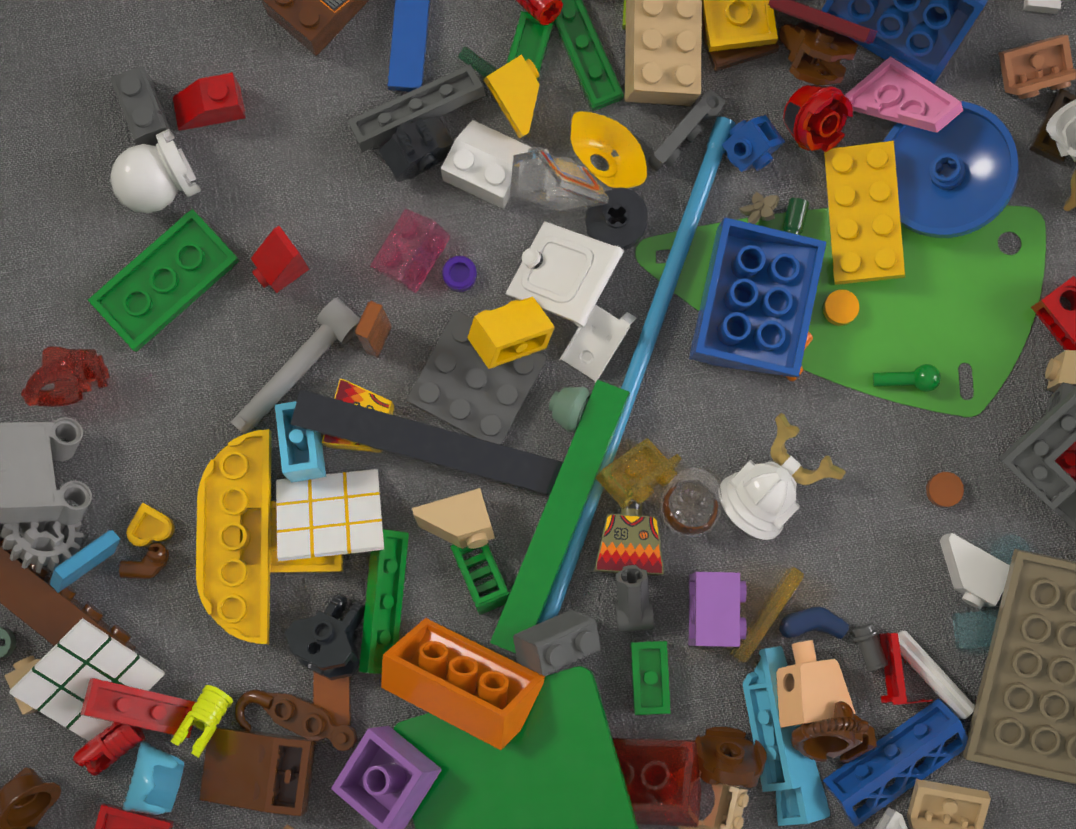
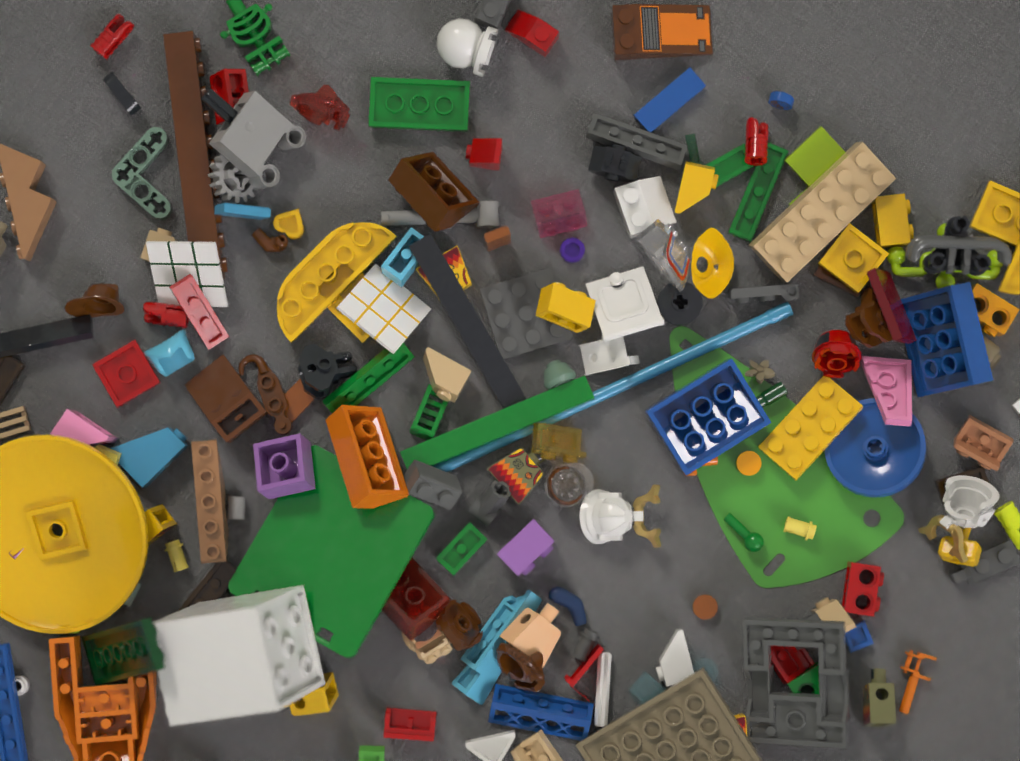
camera: 50 degrees right, 5 degrees up
(205, 716) = (226, 347): neon yellow hinge -> none
(260, 349) = (432, 190): none -> reddish brown slope
(752, 143) = (789, 334): blue brick -> none
(767, 614) = (549, 577): clear yellow tile -> none
(957, 318) = (800, 528): none -> light yellow pin

